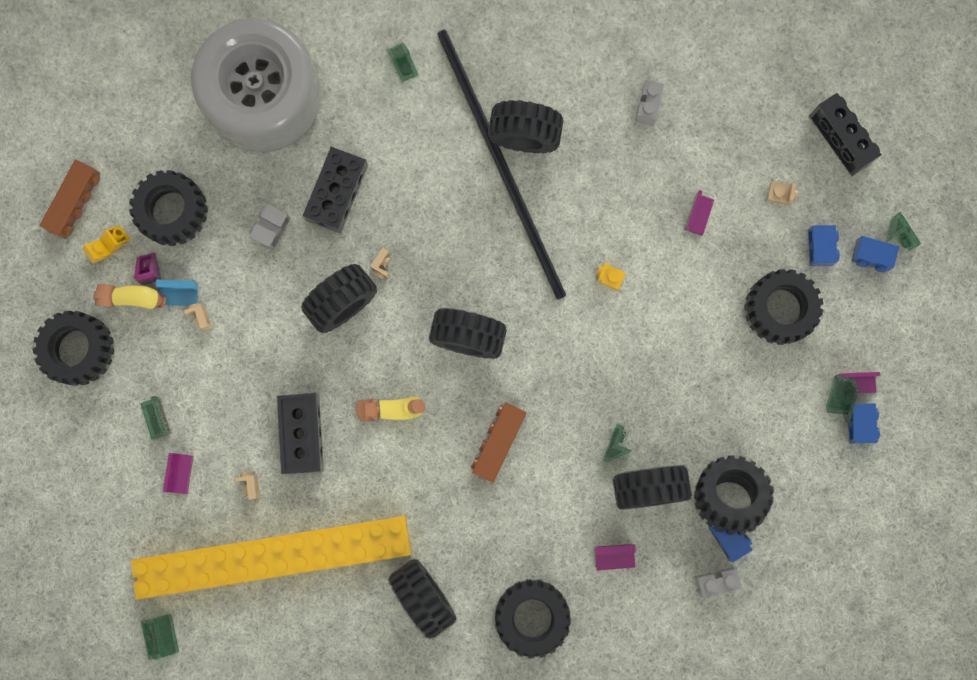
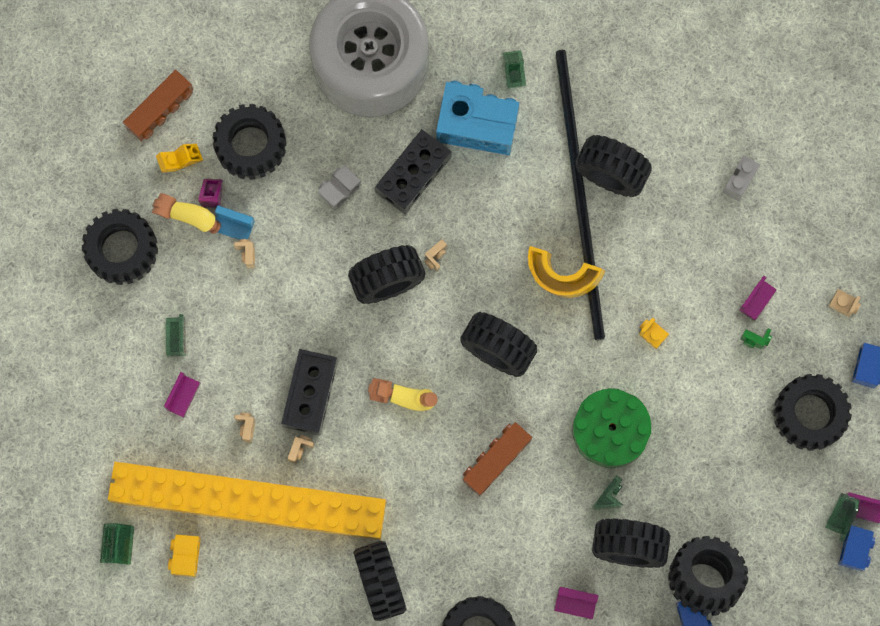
camera: 15 degrees right, 5 degrees down
(228, 628) = (185, 555): none -> yellow brick
(305, 493) = (296, 451): none -> tan bracket
(379, 121) = (476, 120): none -> dark azure piece
(514, 257) = (563, 286): none -> yellow brick
(617, 374) = (625, 415): none -> green piece
(707, 254) = (751, 339): none -> green bracket

